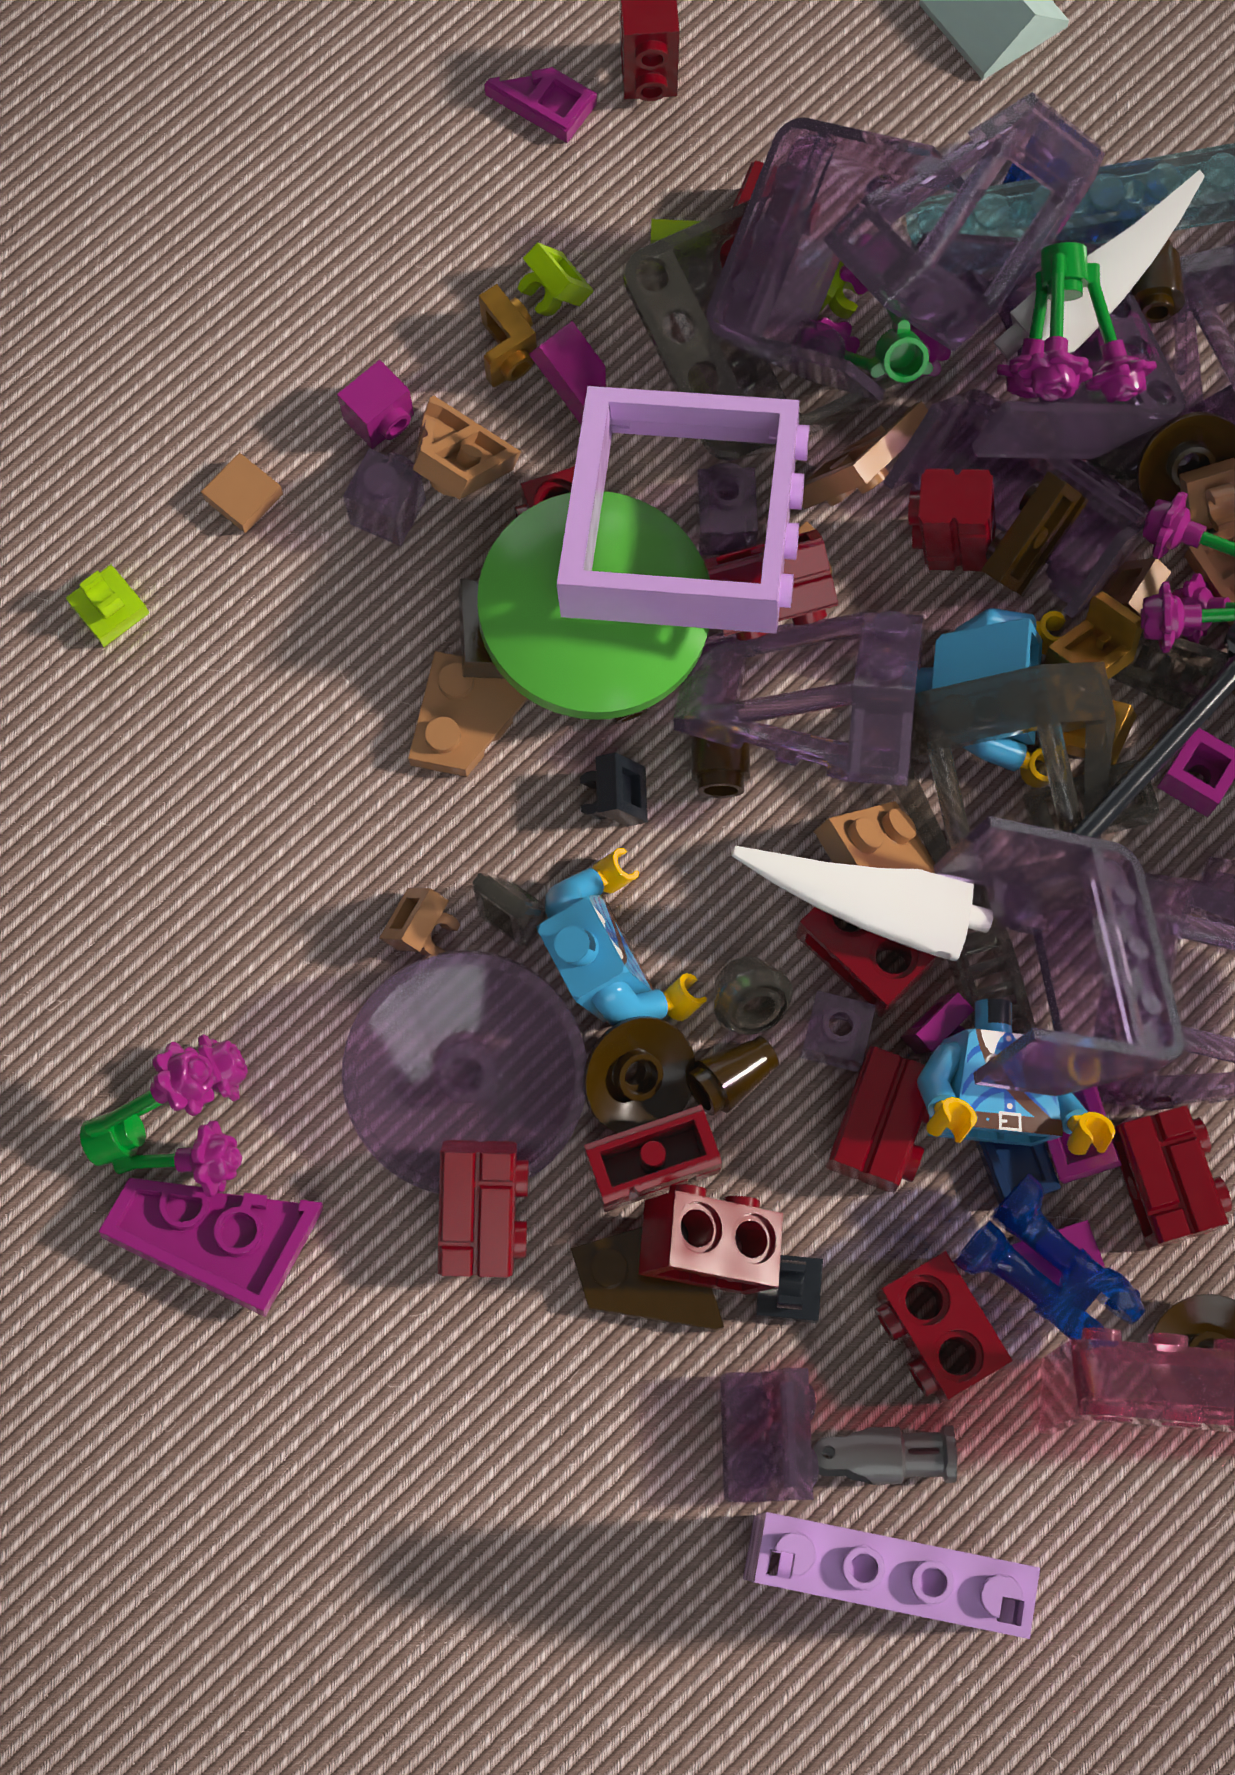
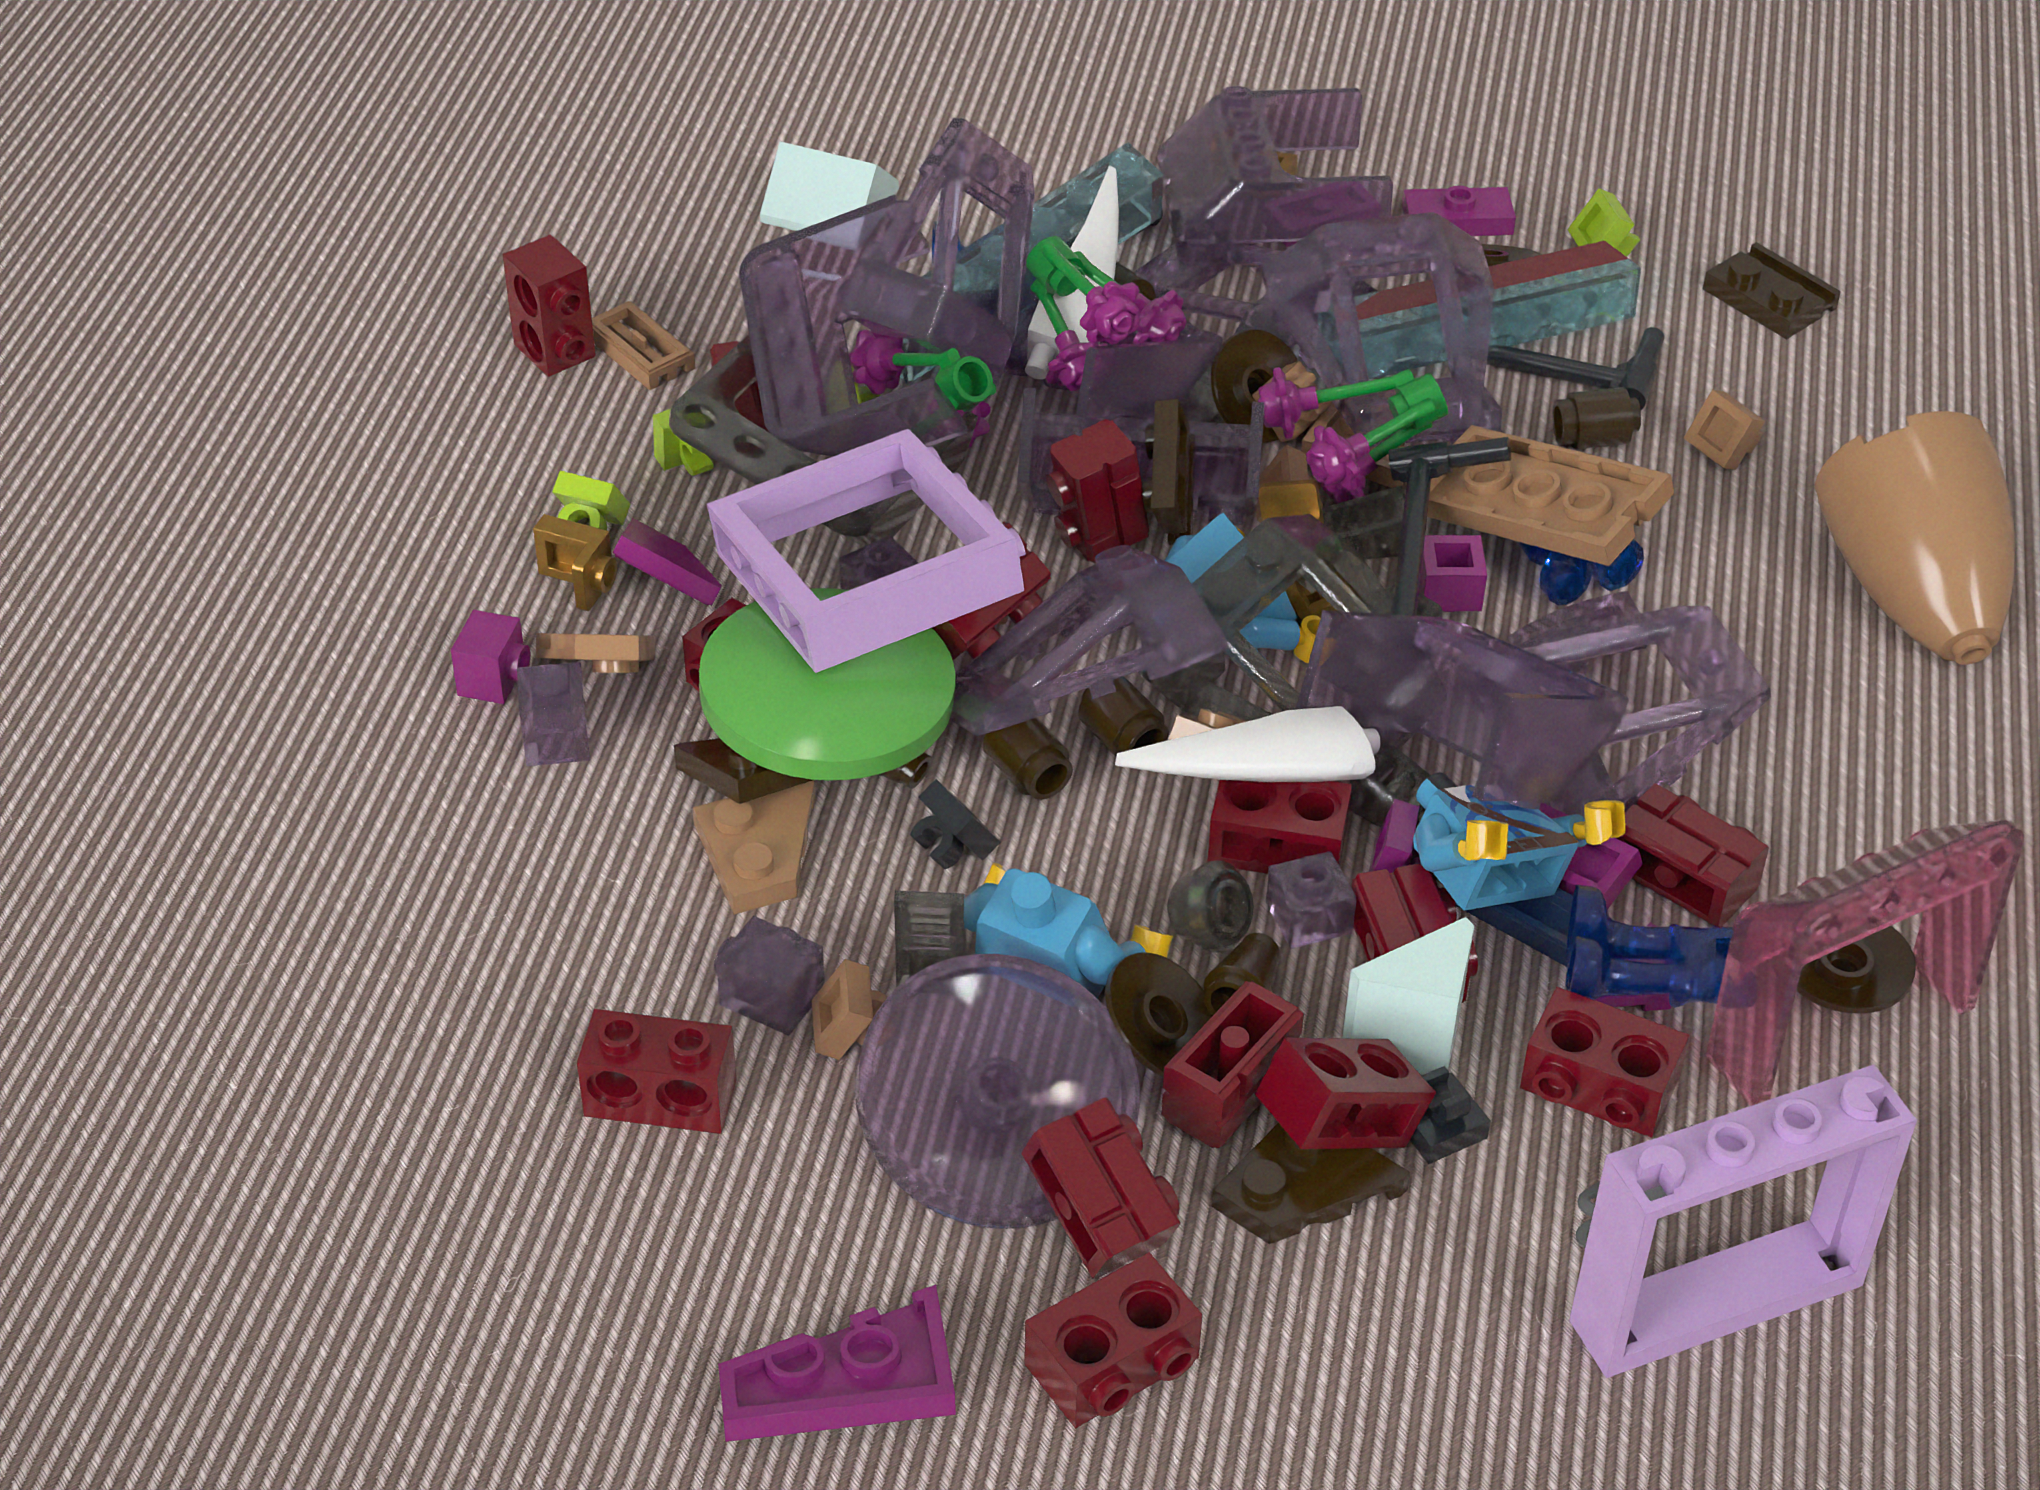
camera: 35 degrees left, 30 degrees down
(107, 605) = (322, 928): lime tile -> none
(187, 1083) = (735, 1218): magenta plant -> none
(242, 492) = (400, 784): medium nougat tile -> none
(246, 895) = (657, 1071): none -> dark red brick
(385, 851) = (769, 974): none -> clear purple brick
(407, 1316) = (1106, 1328): none -> dark red brick
(546, 100) = (475, 400): magenta tile -> none
(721, 143) = (631, 347): none -> medium nougat tile
(768, 1436) = (1527, 1218): clear purple bracket -> none
(809, 778) = (1122, 718): none -> dark brown brick
(822, 1202) = (1413, 996): none -> light aqua slope
(862, 462) = (989, 478): medium nougat wing -> none

